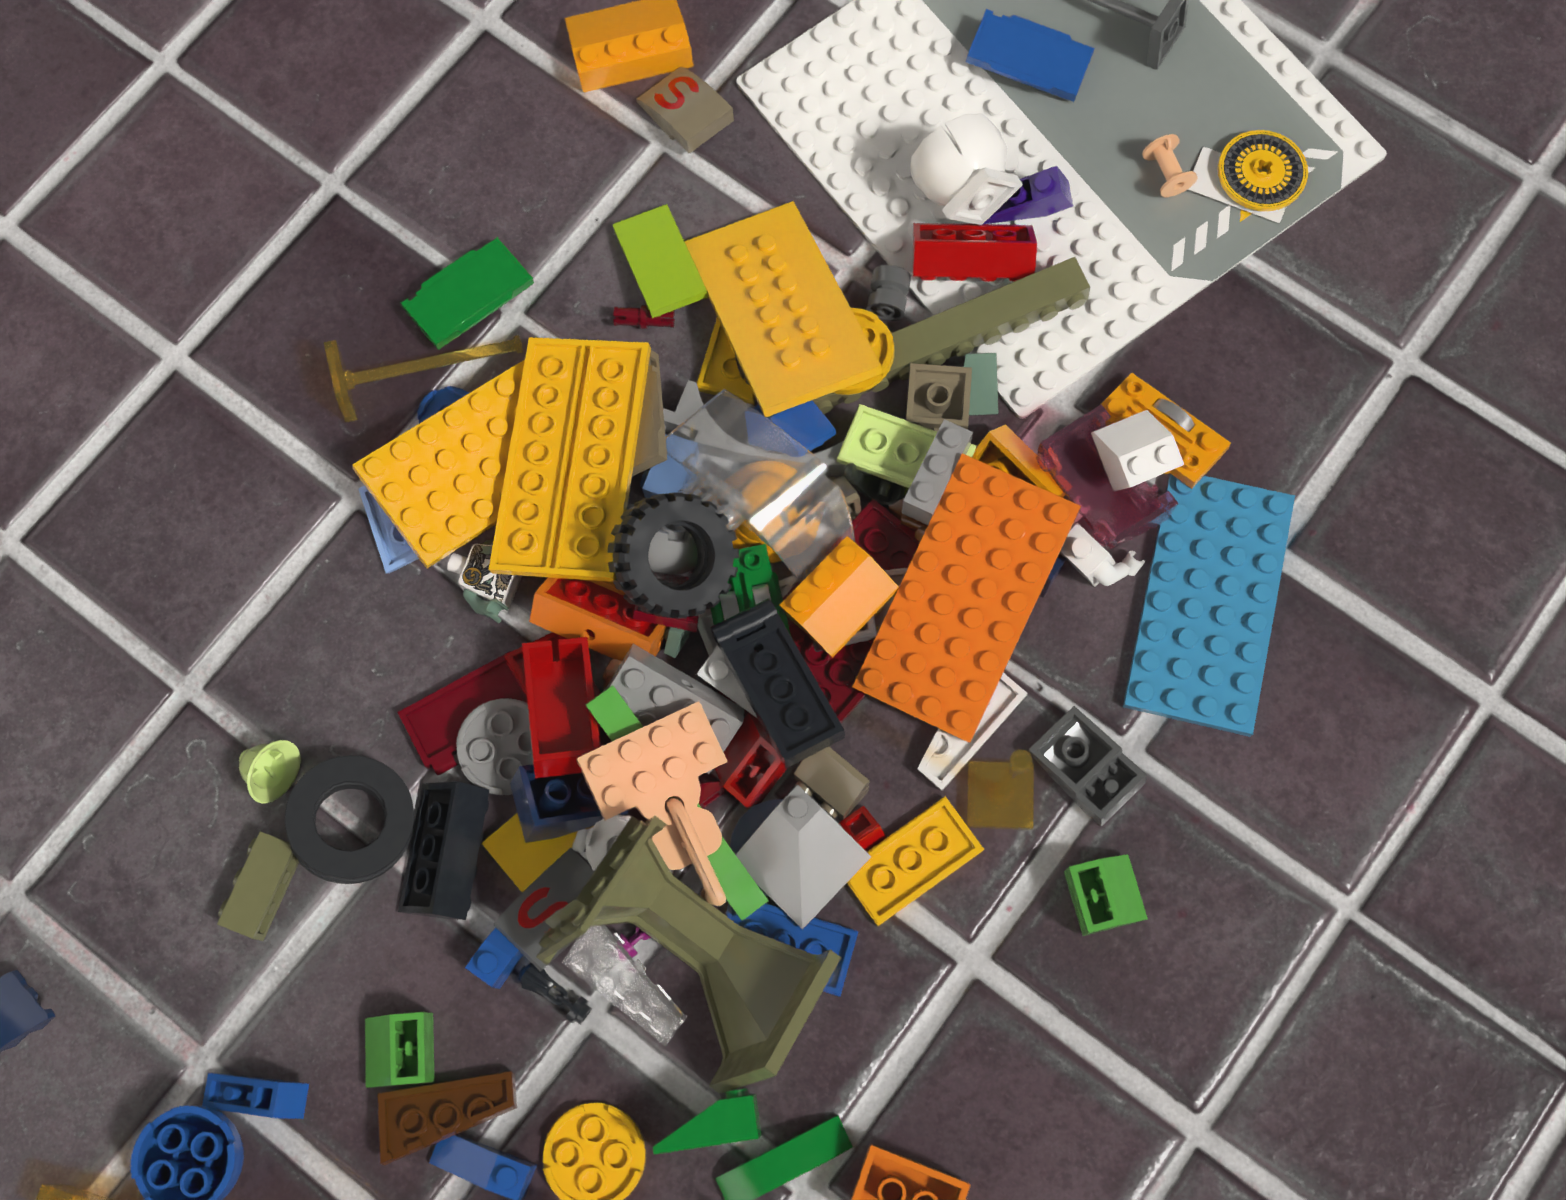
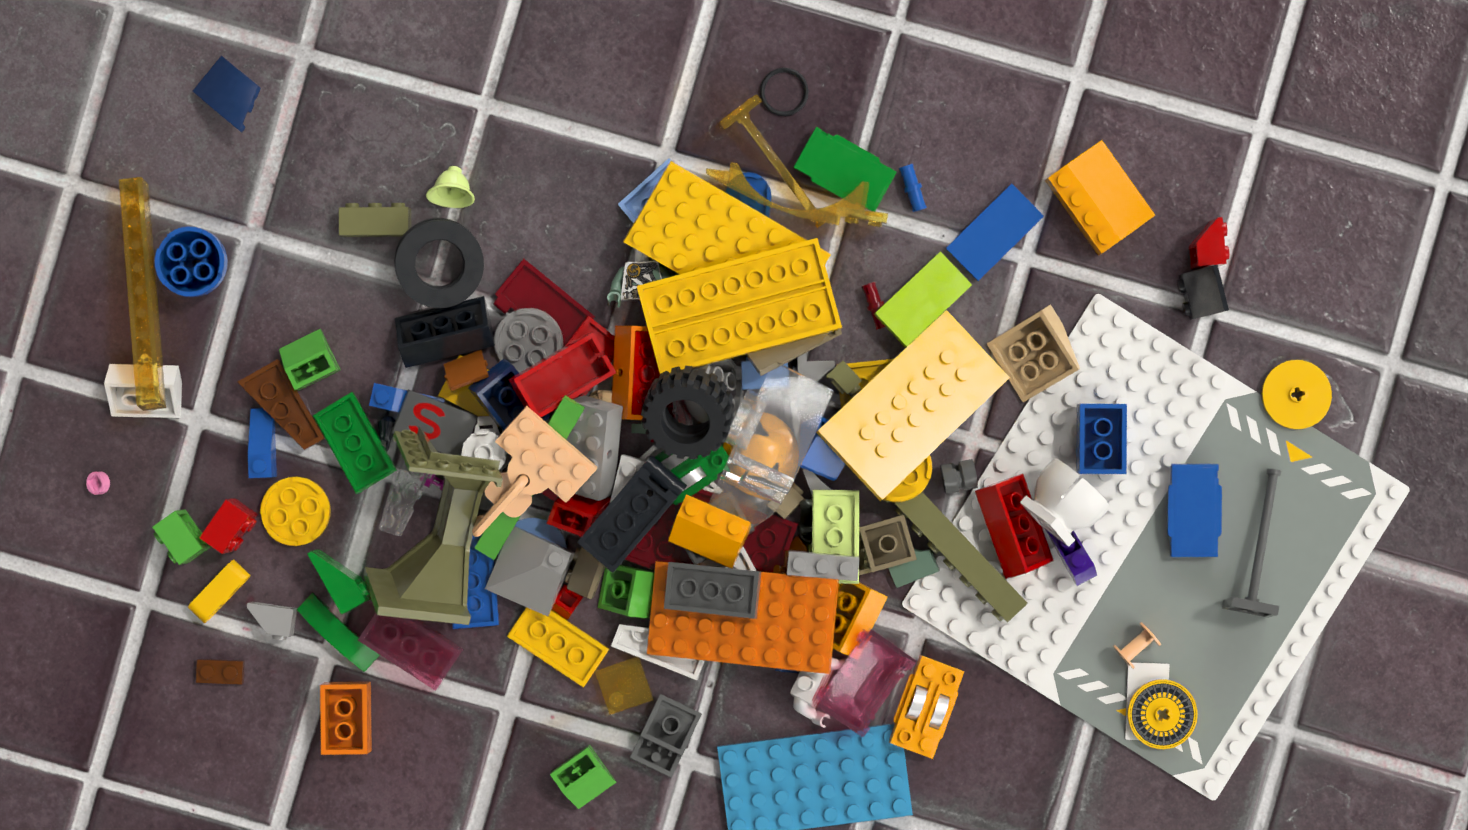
camera: 60 degrees right, 15 degrees up
(256, 1096) = (246, 281): blue slope -> none
(374, 329) = (786, 70): none -> black tyre
(503, 837) = (466, 370): none -> dark orange piece
(514, 295) = (851, 207): none -> clear yellow slope
(524, 228) = (912, 187): none -> blue pin
(535, 1030) = (354, 443): none -> green tile
(617, 161) = (994, 232): none -> blue tile
(686, 108) = (1056, 265): dark tan slope -> none
(715, 375) = (844, 379): none -> olive window
(777, 161) = (1035, 353): none -> tan slope
(840, 1061) = (412, 647): none -> clear pink brick
(877, 741) = (627, 591): none -> bright green slope
(902, 113) = (1101, 439): none -> blue brick
(917, 617) = (712, 590): none -> dark grey plate
(1136, 450) = (893, 696): white slope -> none

